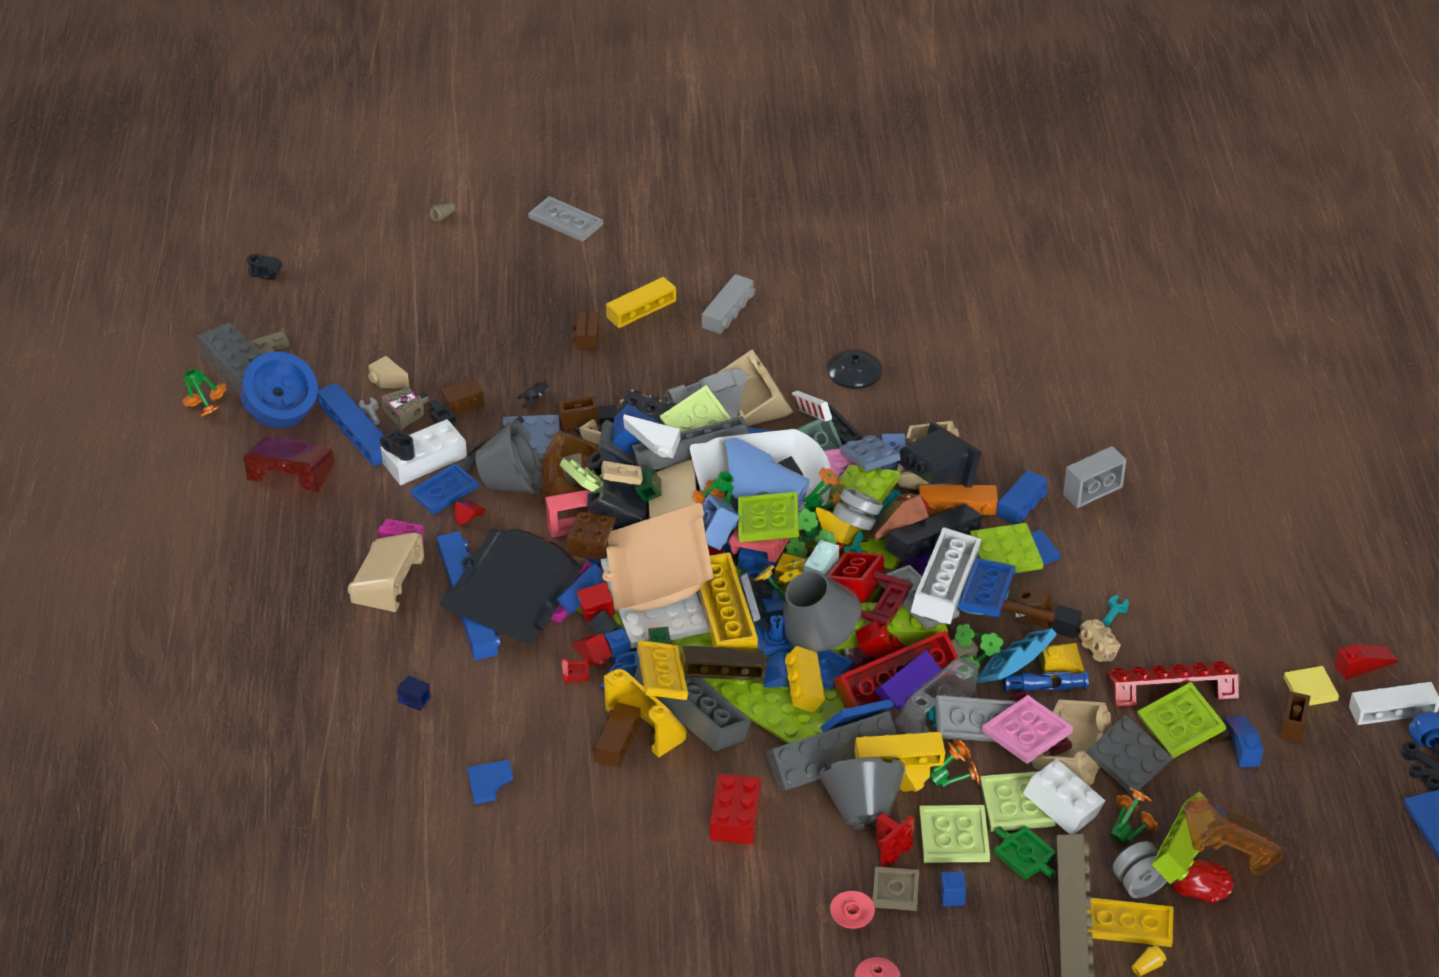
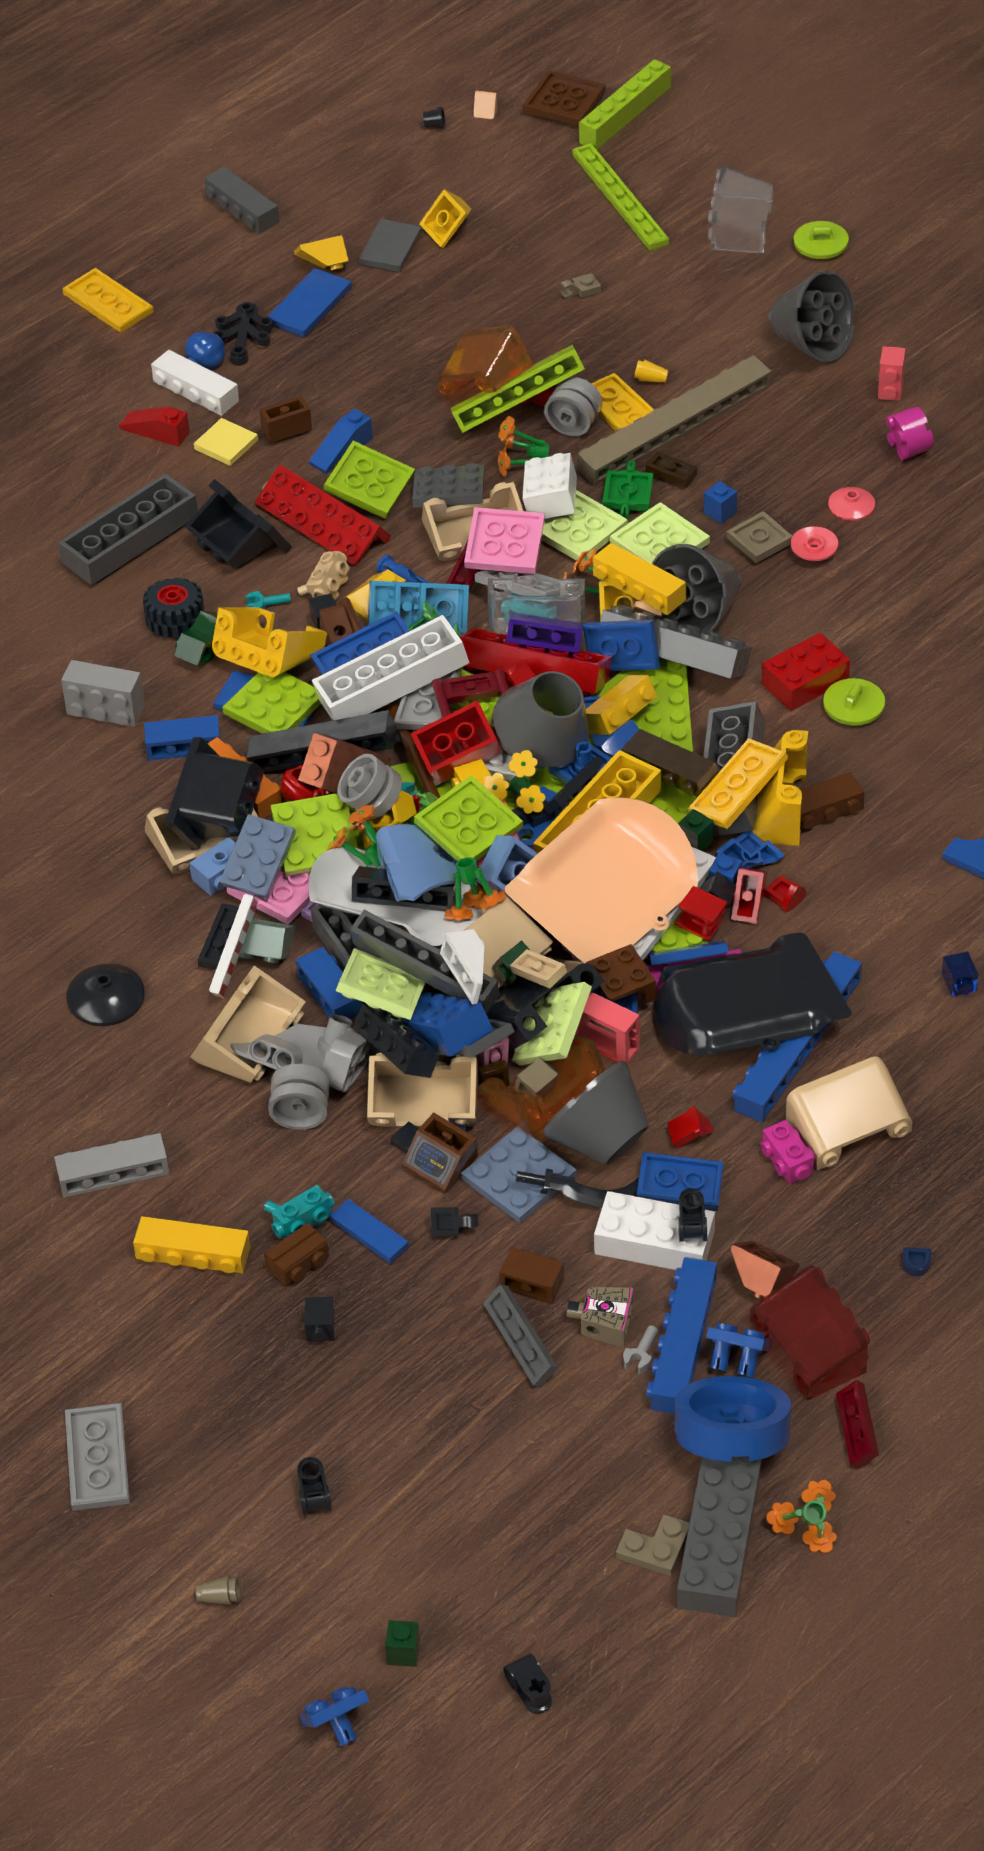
camera: 130 degrees left, 5 degrees up
(221, 447) = (857, 1424): none -> dark red plate
(275, 540) = (916, 1261): none -> dark blue tile
(321, 429) = (727, 1336): none -> blue plate
(334, 202) = (335, 1712): none -> blue plate
(336, 241) = (402, 1643): none -> dark green brick
(351, 476) = (762, 1268): none -> slope
(388, 374) = (574, 1377): tan slope -> none
(427, 372) = (520, 1335): none -> dark grey plate
(440, 413) = (577, 1271): black plate -> none
(451, 264) = (313, 1490): none -> black piece
(539, 316) = (319, 1319): none -> black brick
(570, 366) = (369, 1231): none -> blue tile
(608, 339) = (309, 1207): none -> teal brick
(677, 371) = (299, 1096): none -> light grey wheel
(684, 820) = (854, 701): none -> lime shield
(822, 558) = (475, 760): light aqua brick -> none
(893, 838) = (725, 545): red bracket -> none
(1022, 893) = (671, 469): none -> dark brown plate
(1061, 565) = (269, 652): none -> yellow windscreen
(1104, 554) = (196, 643): none -> dark green brick
(1147, 555) = (172, 606): none -> black wheel
(1199, 628) = (232, 529): none -> black windscreen
(1252, 577) = (128, 529): none -> dark grey brick

